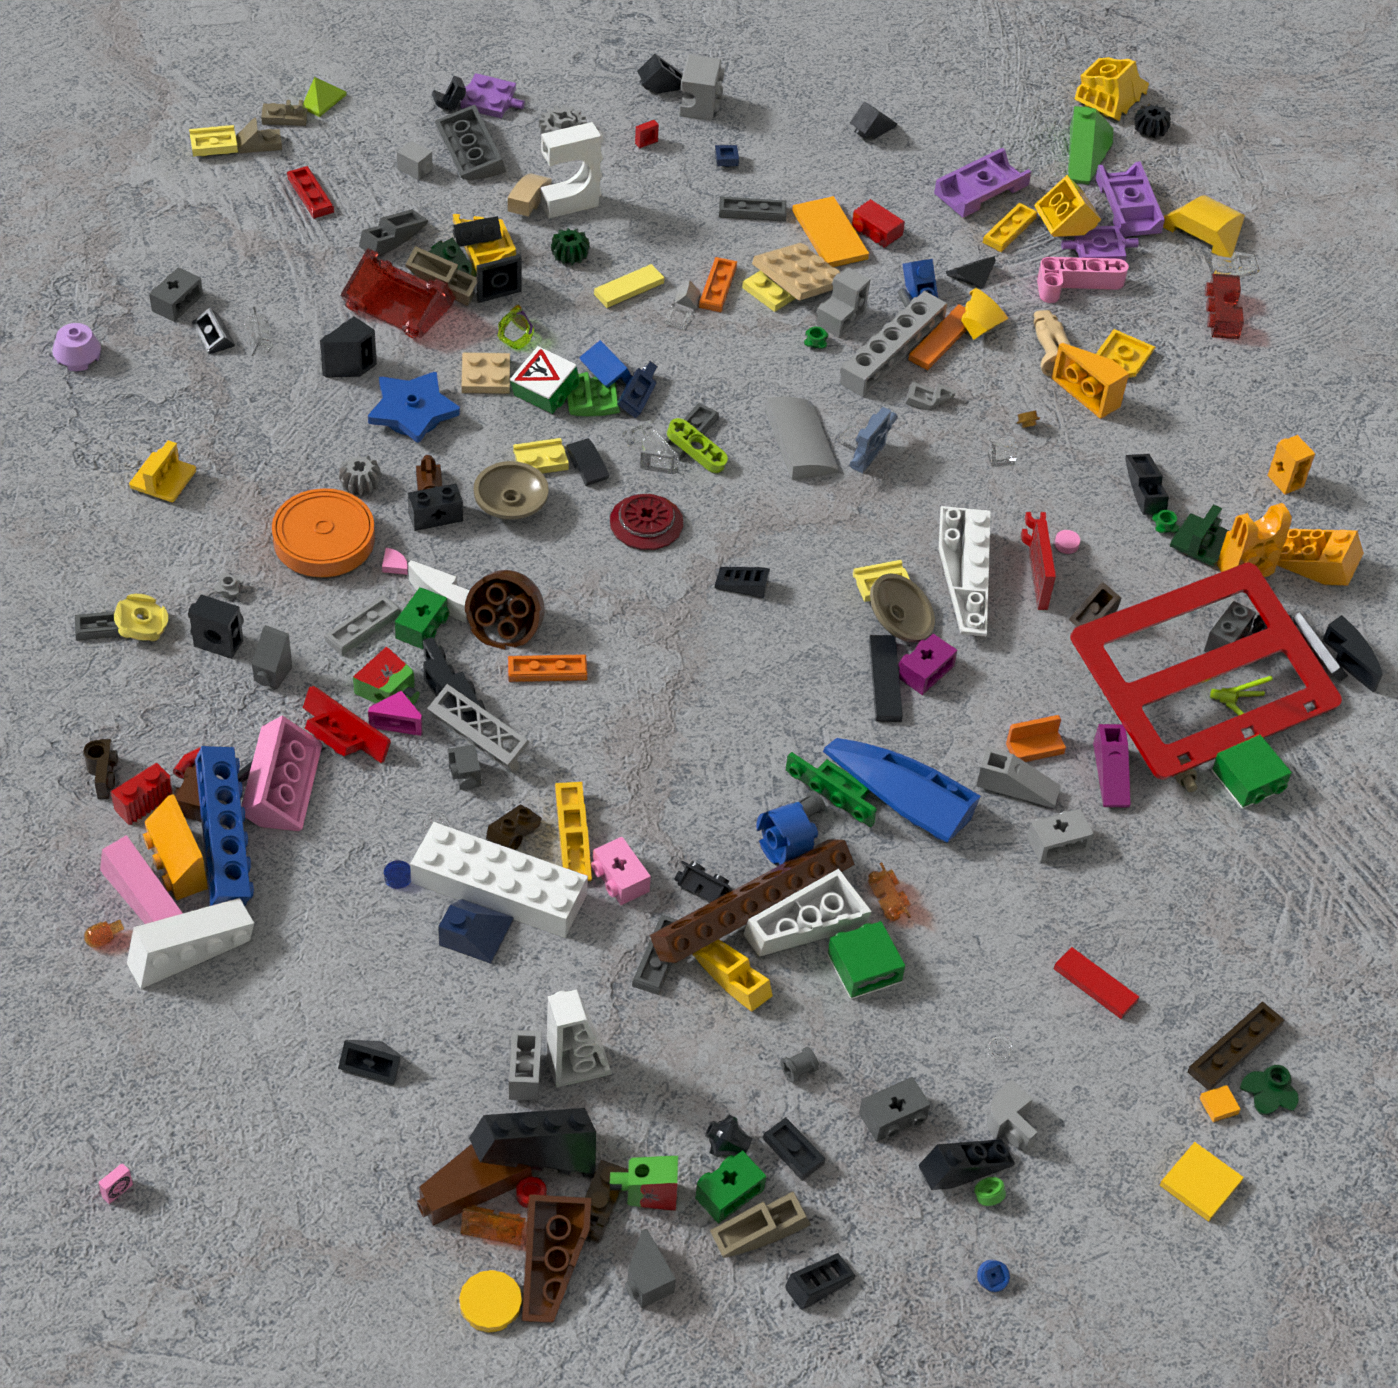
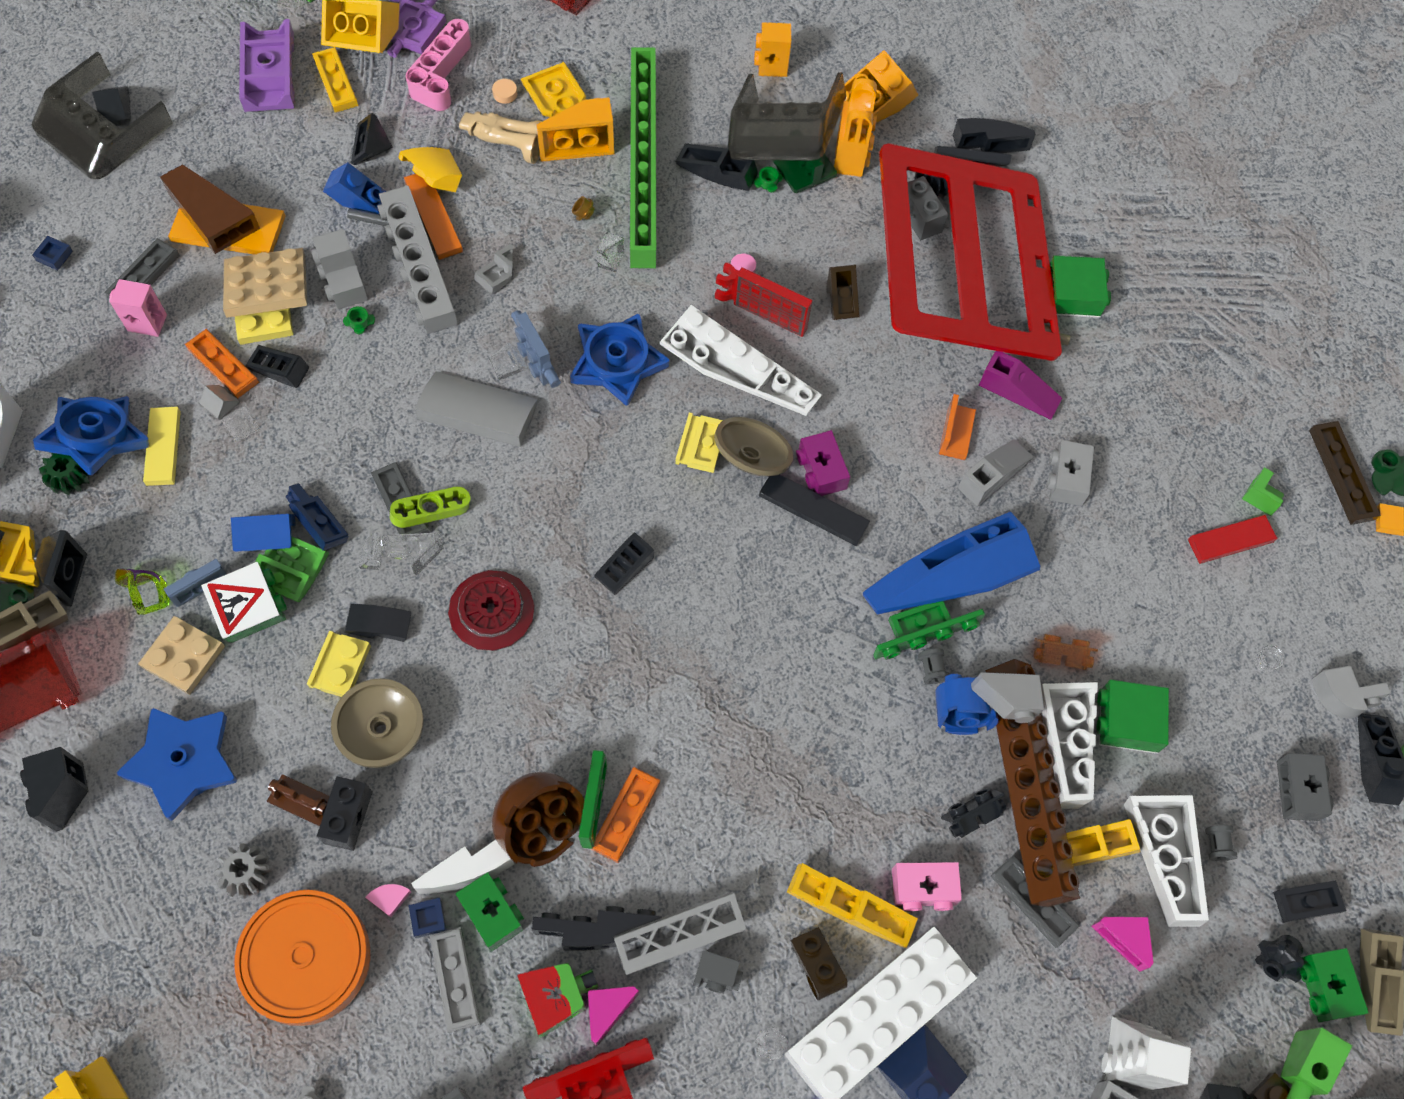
camera: 60 degrees left, 15 degrees up
(394, 587) = (427, 917): none -> dark blue plate
(528, 344) = (190, 585): none -> sand blue plate
(542, 636) = (593, 800): none -> green tile
(607, 240) = (91, 431): none -> blue plate
(673, 1024) = (1129, 937): none -> dark pink slope
(718, 215) = (138, 307): none -> bright pink brick
(741, 317) = (292, 373): none -> black slope
(761, 1025) = (1172, 855): none -> white wedge
(807, 837) = (1011, 694): none -> light grey slope
(827, 213) = (209, 209): none -> reddish brown slope
(833, 117) = (82, 132): none -> clear smoke windscreen
(877, 223) = (251, 179): red brick -> none
(913, 497) = (616, 357): none -> blue plate
(1094, 326) = (504, 91): none -> light nougat tile
(1106, 429) = (643, 158): none -> bright green brick
(1161, 988) = (1263, 495): none -> bright green panel
(1206, 493) = (783, 129): none -> clear smoke windscreen
(1231, 695) = (987, 249): lime plant -> none

